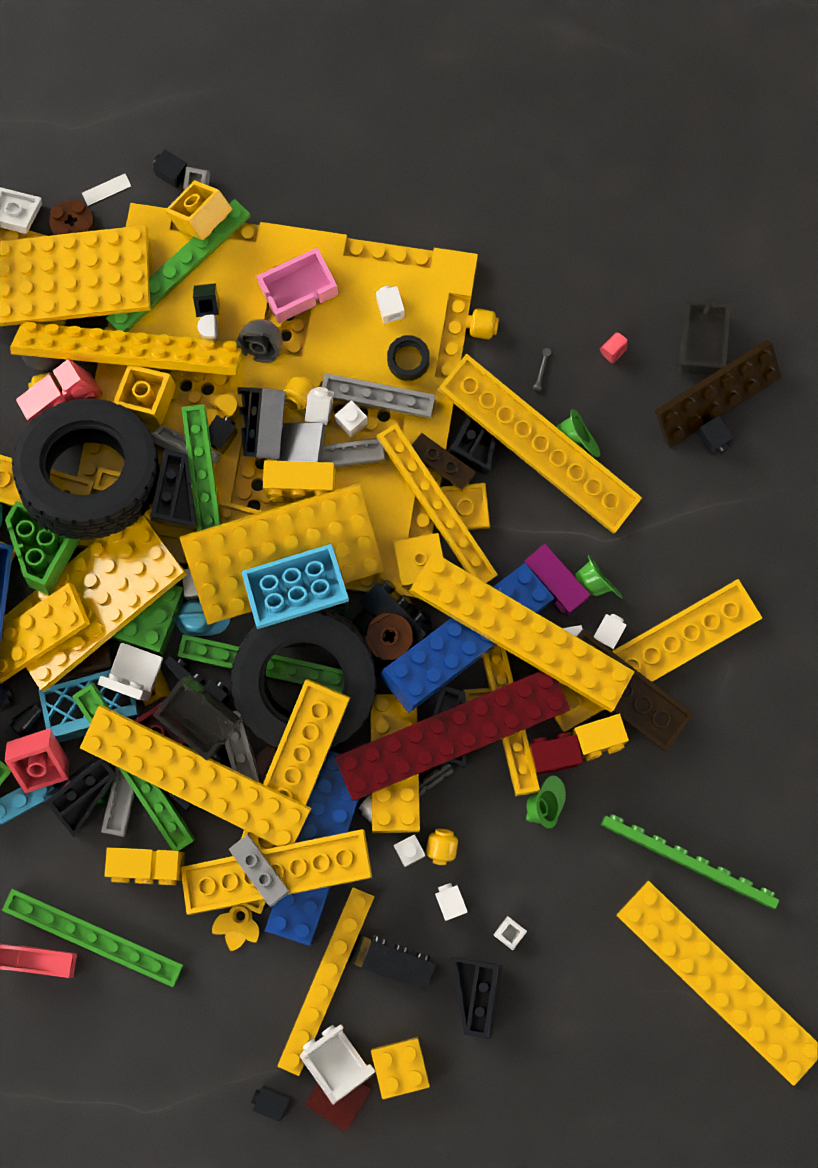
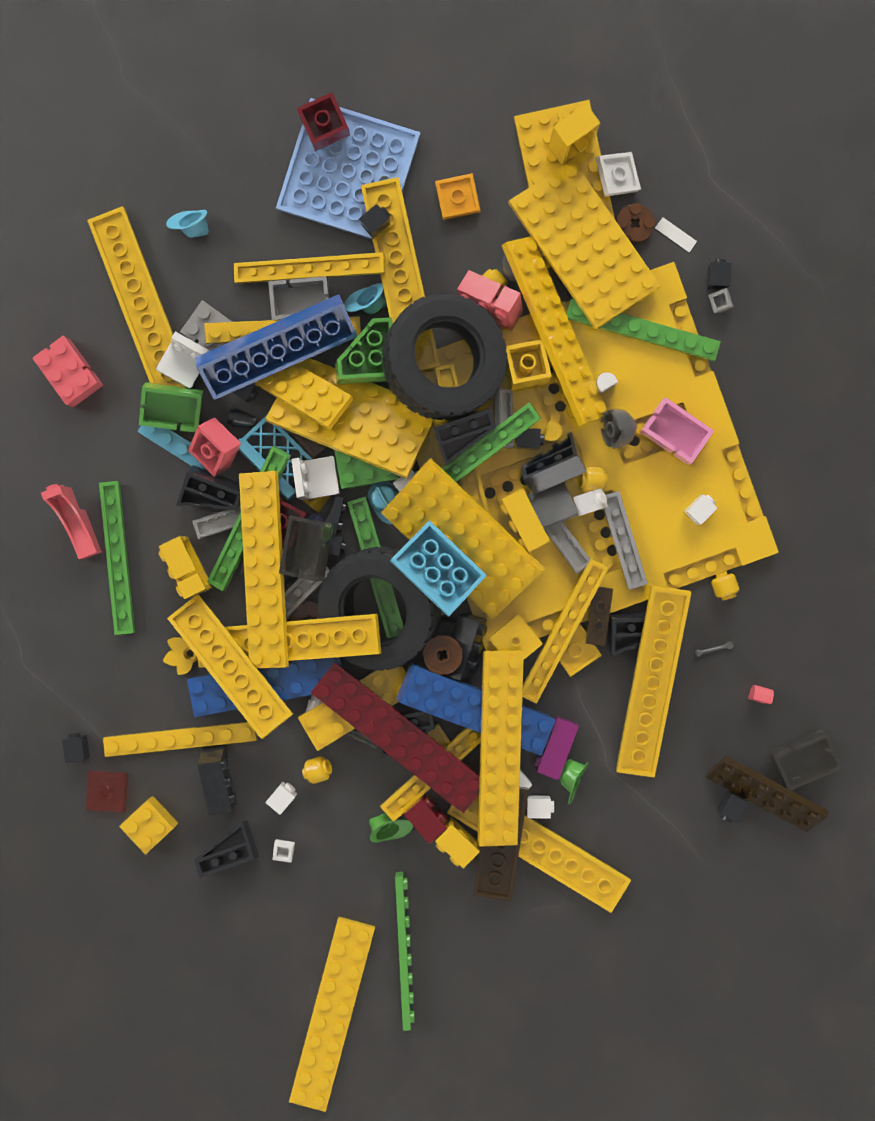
camera: 55 degrees right, 10 degrees up
(198, 210) = (694, 320): yellow brick -> none
(206, 300) = (626, 367): black brick -> none
(259, 870) = (223, 654): light grey plate -> none
(335, 1063) = (125, 779): white panel -> none
(351, 419) = (594, 531): white brick -> none
(408, 340) = (680, 544): black tyre -> none
(409, 850) = (300, 749): white brick -> none
(577, 432) = (677, 705): bright green piece -> none

